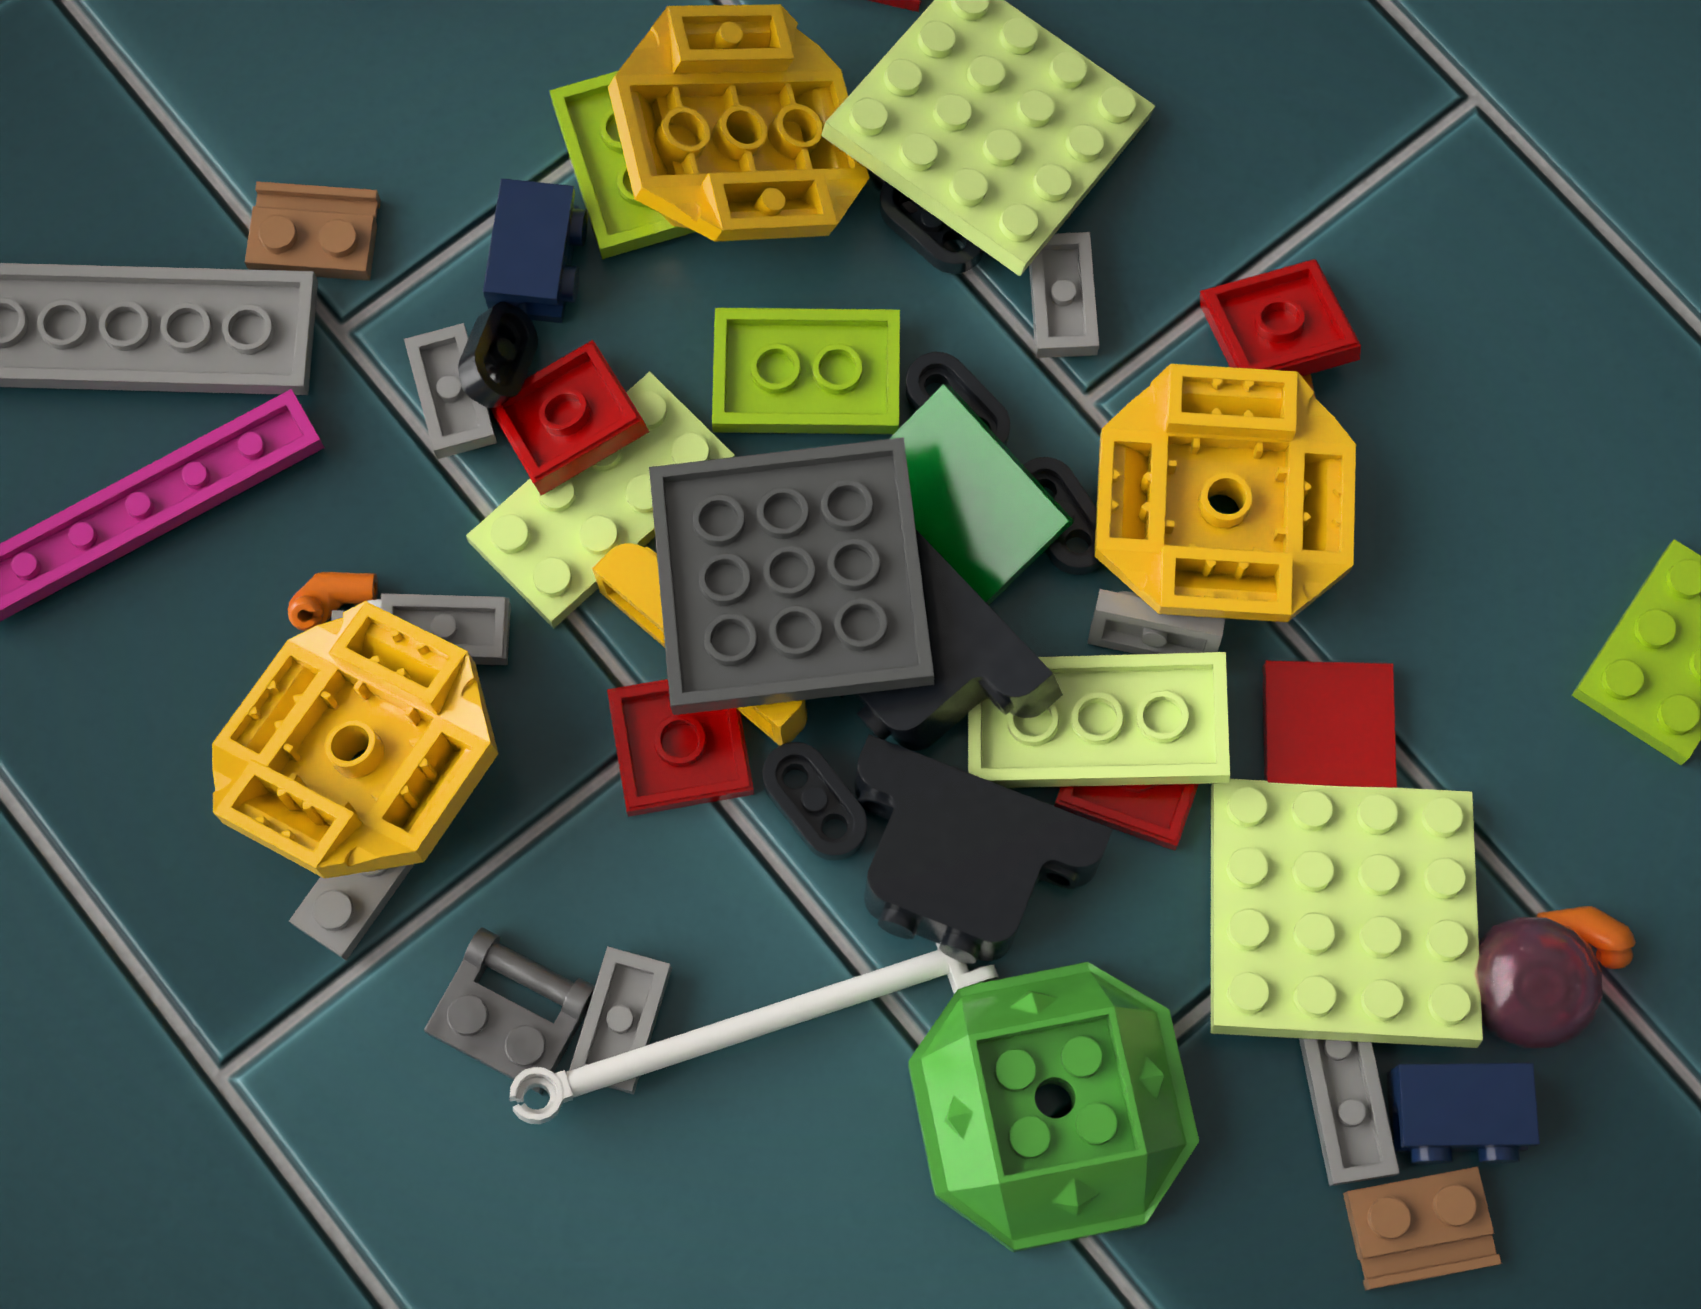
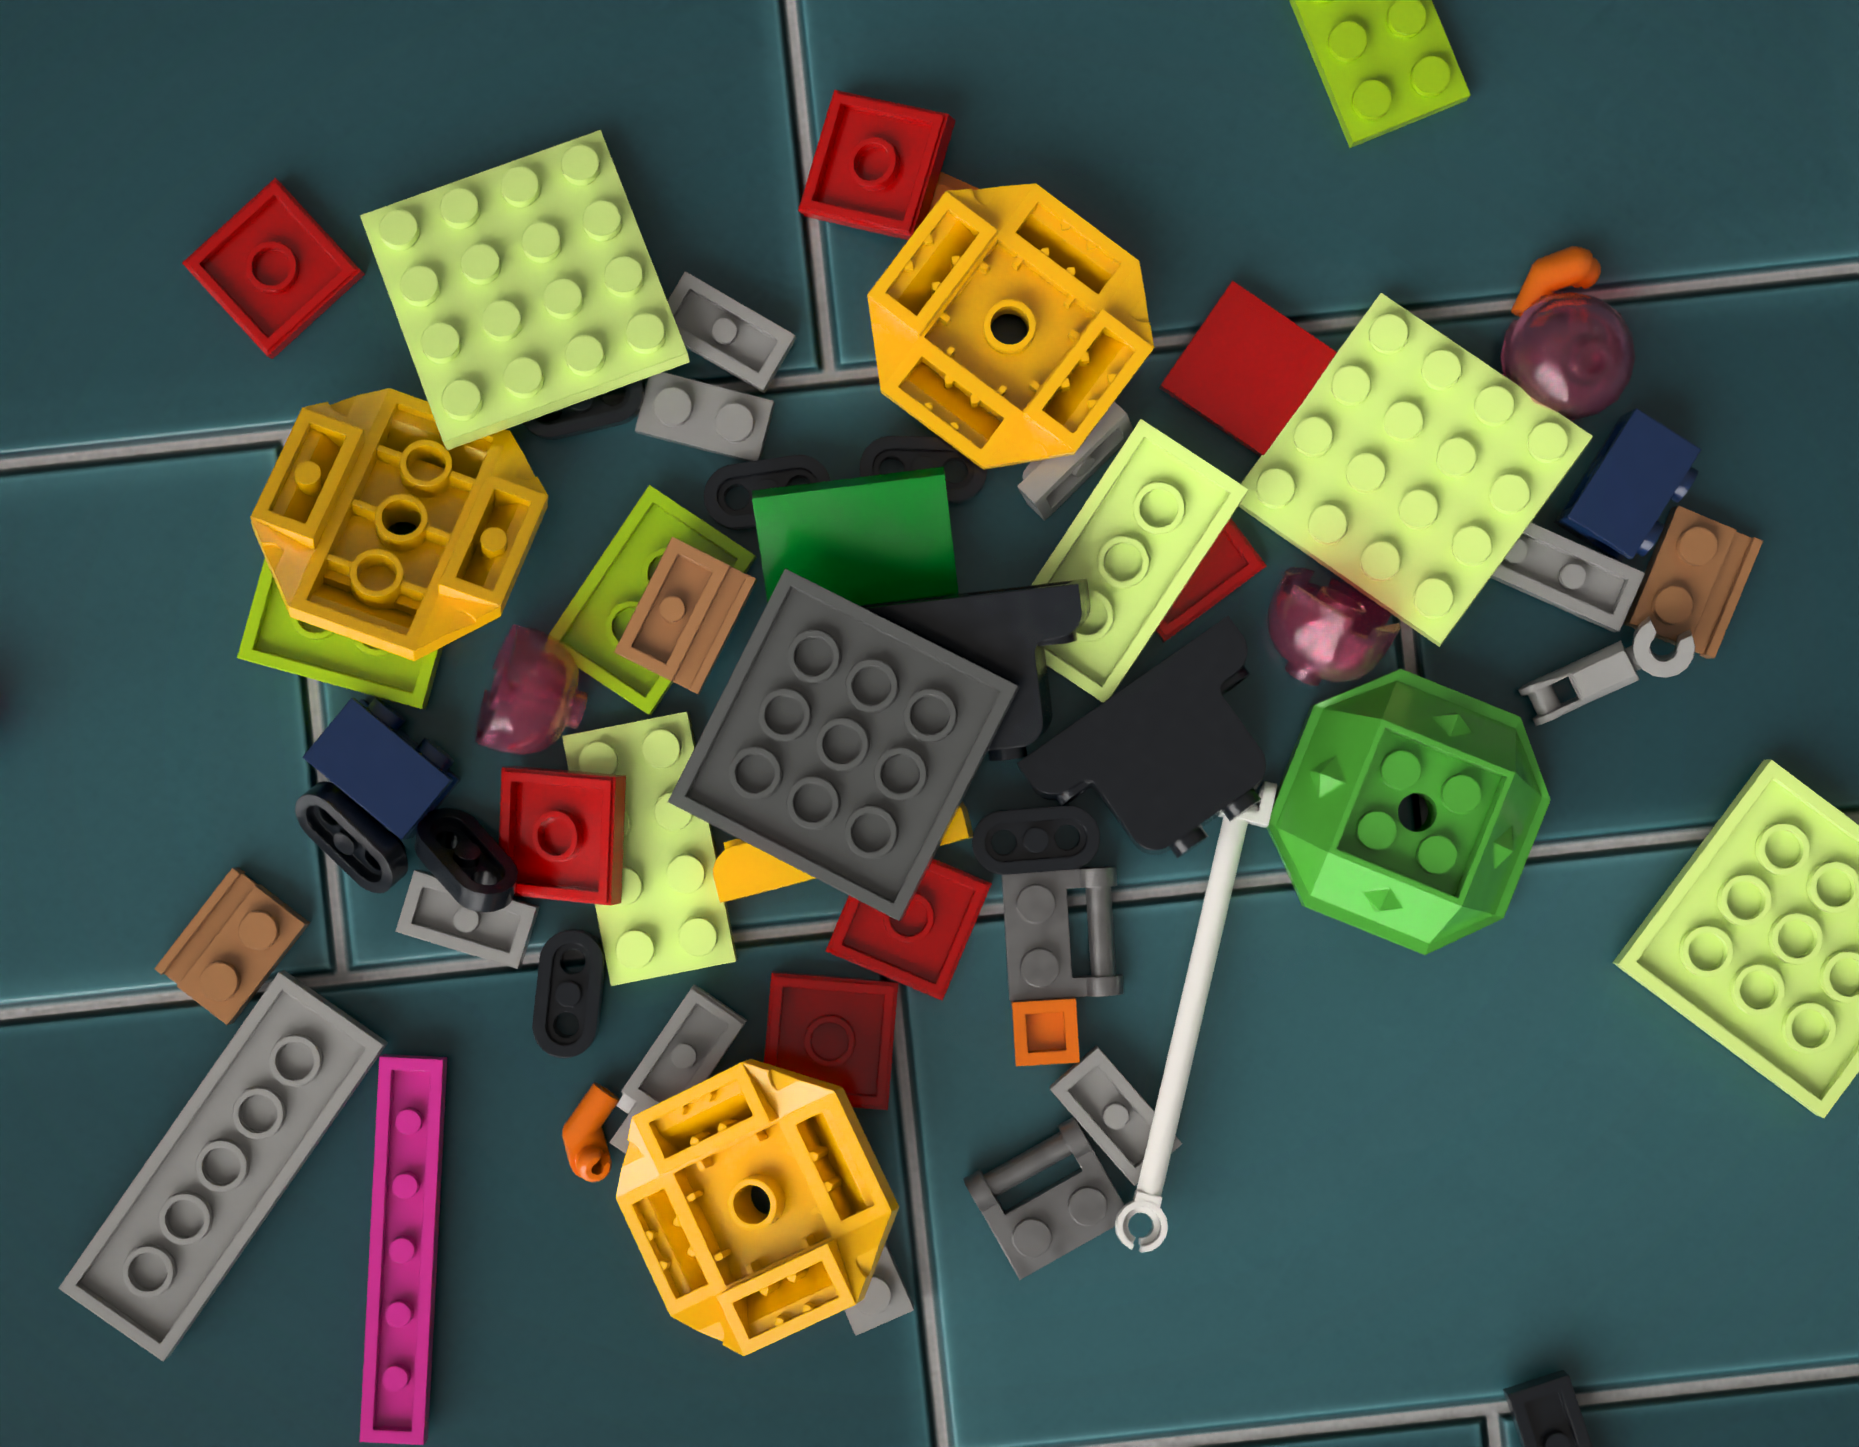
camera: 55 degrees left, 15 degrees up
(437, 503) = (569, 992): none -> black plate
(460, 263) = (352, 837): none -> black plate
(543, 744) = (834, 1032): none -> red tile
(655, 913) = (1045, 1031): none -> orange plate
(666, 321) = (530, 695): none -> clear pink cylinder
(737, 859) = (1040, 936): none -> flat silver plate
(812, 395) = (685, 615): none -> medium nougat plate
(985, 323) = (705, 417): none -> light grey plate
(1158, 924) = (1327, 630): none -> clear pink cylinder
(1294, 1198) = (1607, 672): none -> light grey piece

